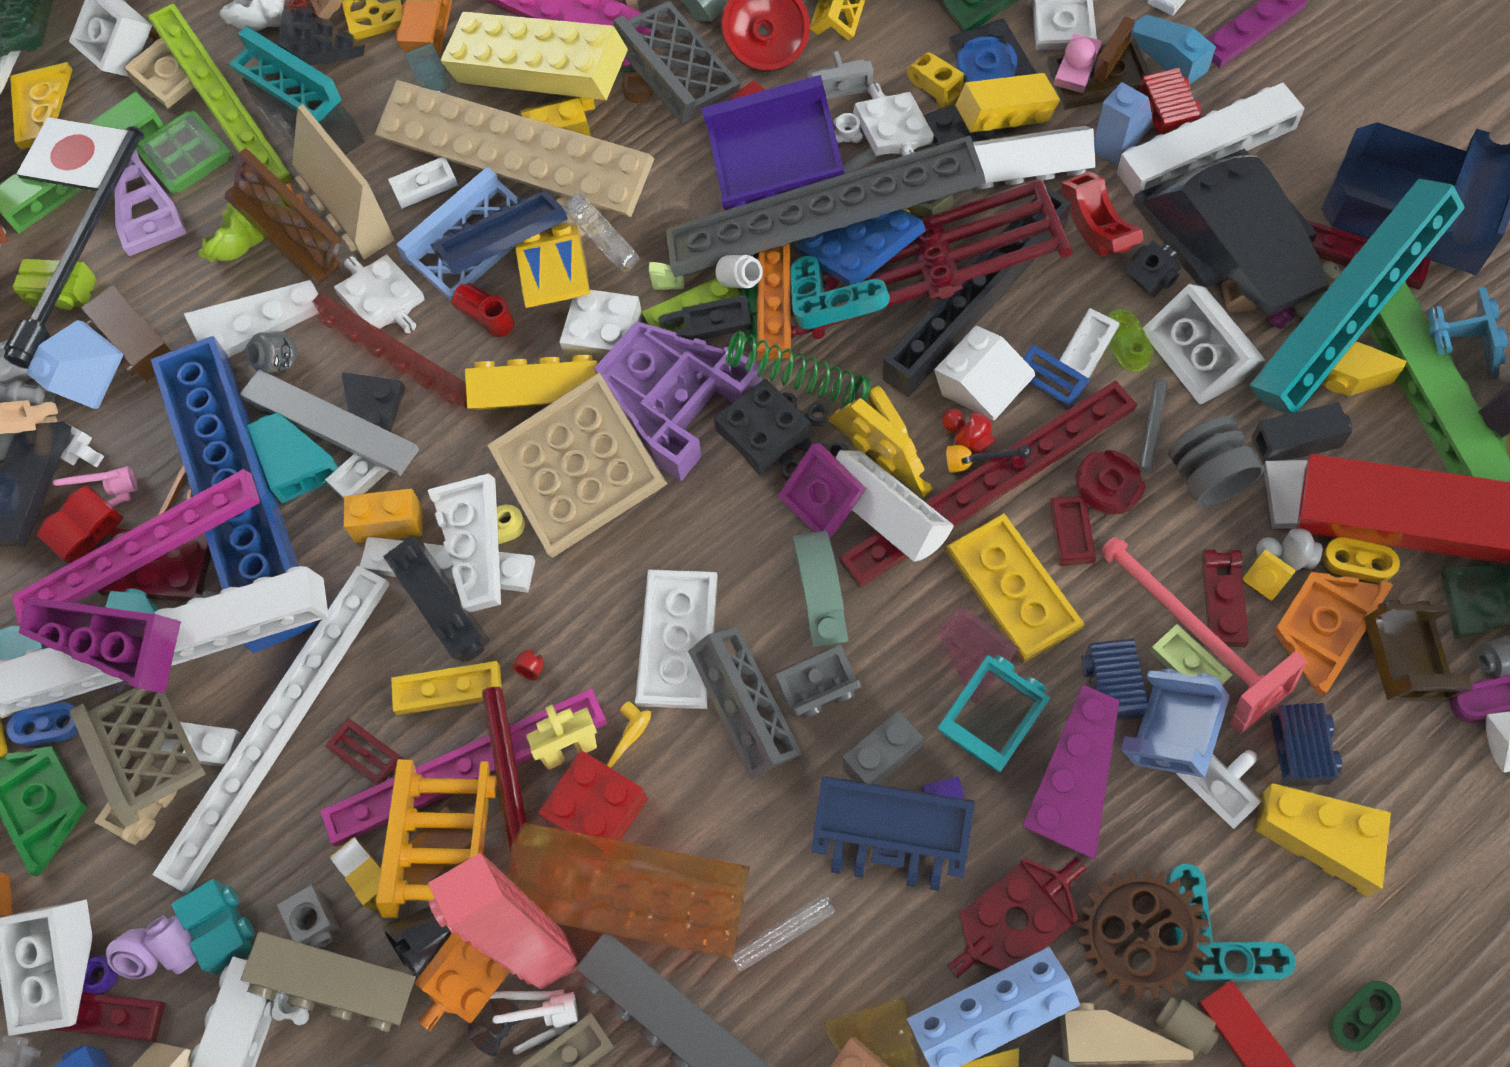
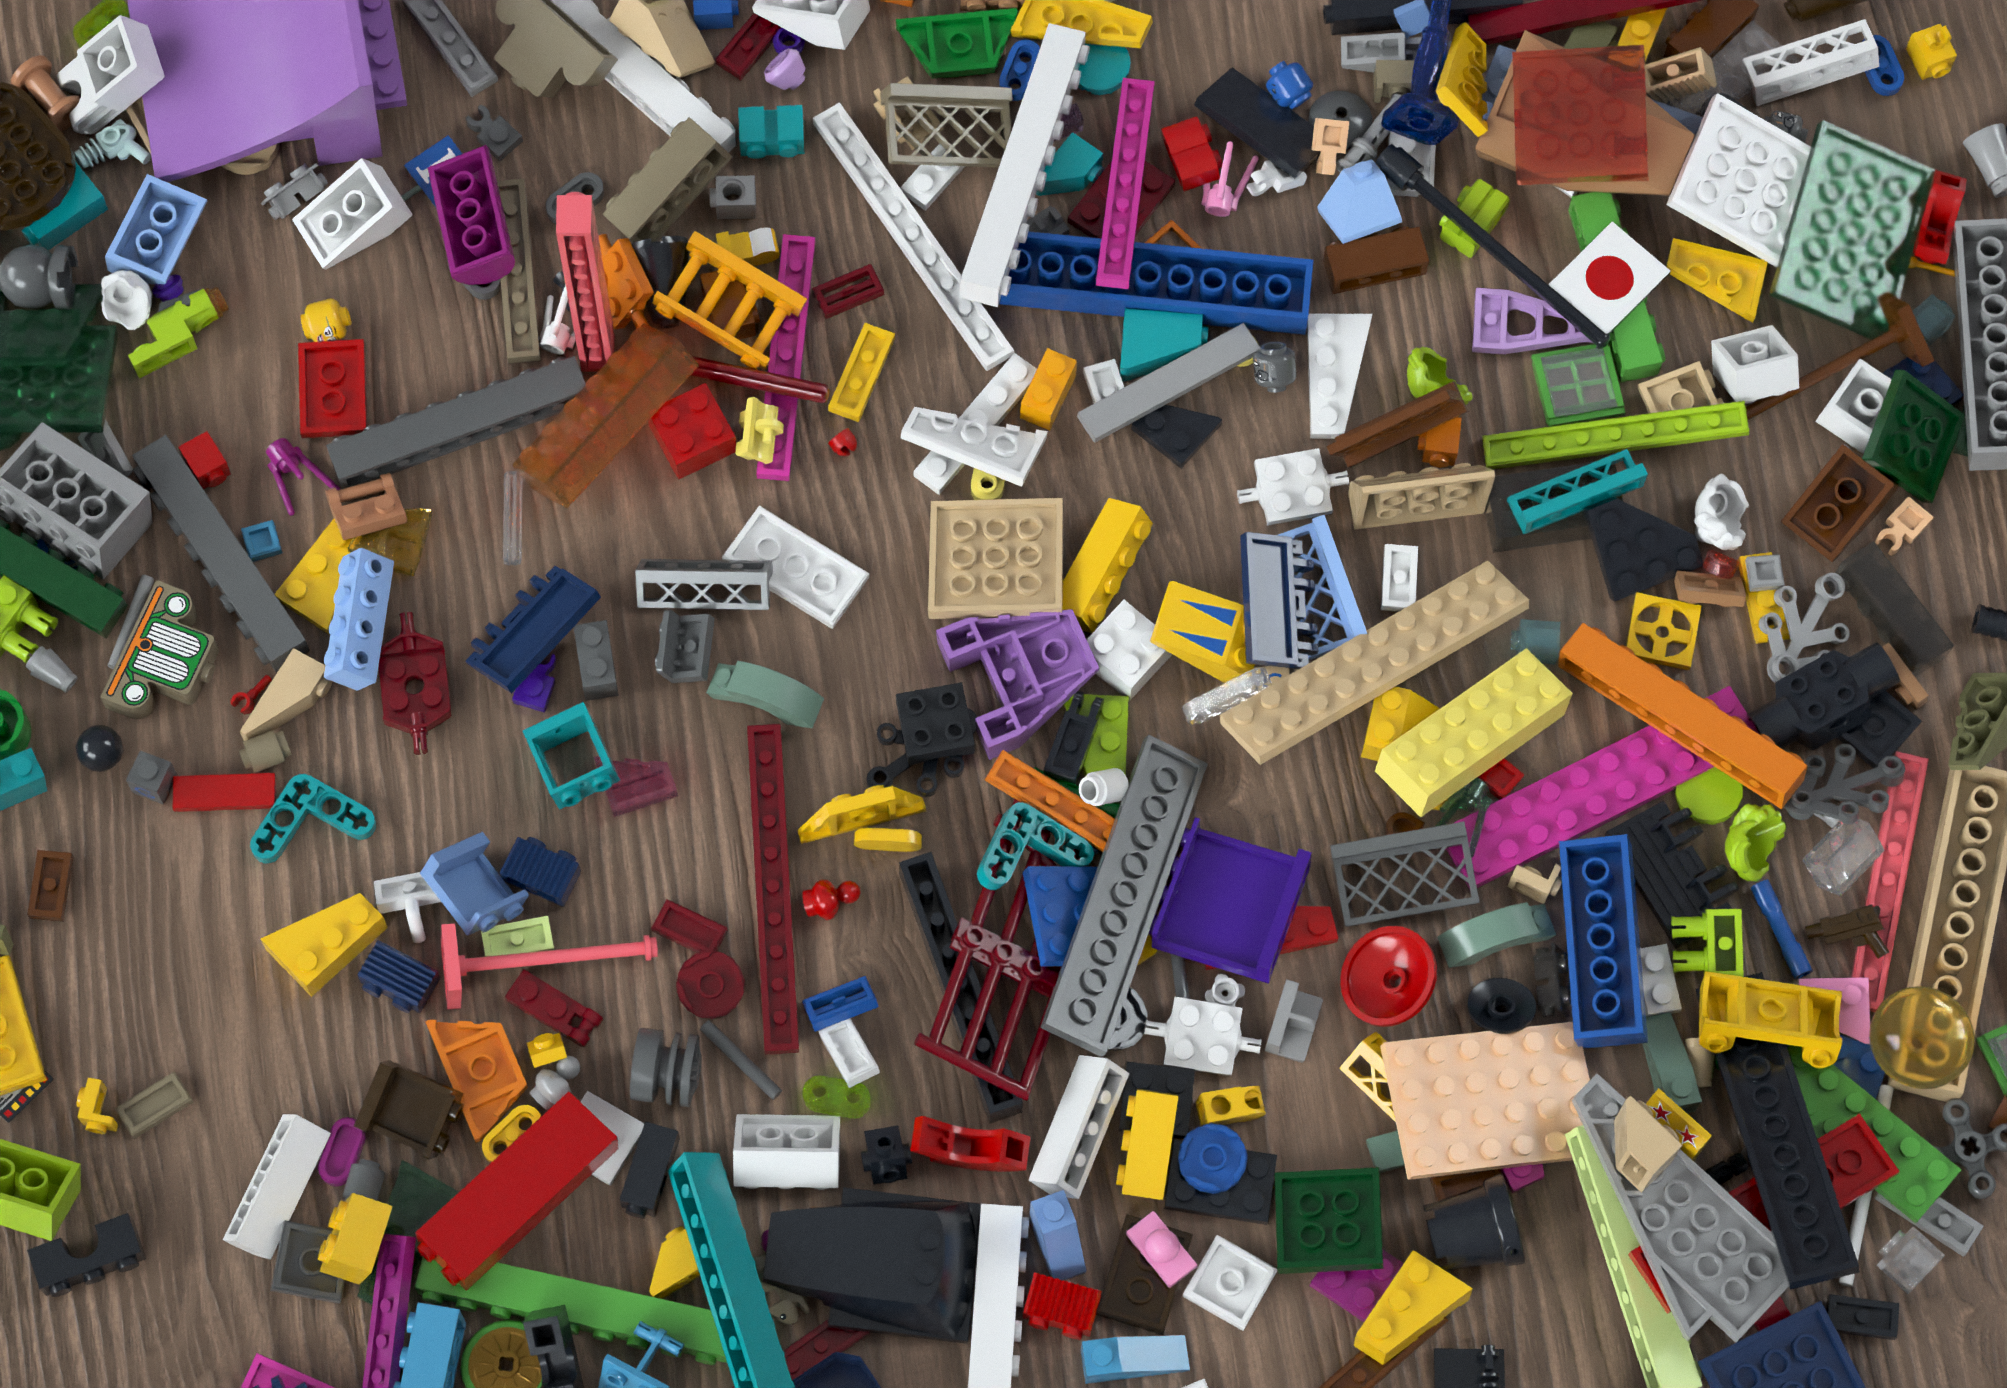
camera: 110 degrees right, 5 degrees up
(116, 641) = (1031, 123): magenta wedge -> none
(170, 944) = (774, 93): lavender brick -> none
(399, 355) = (1227, 463): clear red plate -> none
(437, 599) = (946, 391): black brick -> none
(484, 308) = (1217, 562): red piece -> none
(637, 723) = (737, 492): yellow bar -> none
(663, 278) = (1156, 728): yellowish green tile -> none
(737, 357) = (925, 830): green piece -> none
(821, 491) = (845, 739): magenta plate -> none
(895, 509) = (797, 782): white brick -> none
(960, 457) = (808, 874): hinge -> none
(983, 373) = (872, 938): white slope -> none
(1014, 587) = (671, 851): yellow tile -> none
(1075, 781) = (478, 777): magenta wedge -> none
(1114, 49) = (1150, 1286): reddish brown tile -> none
(1168, 962) = (311, 760): reddish brown gear -> none
(1365, 1021) = (190, 880): dark green plate -> none

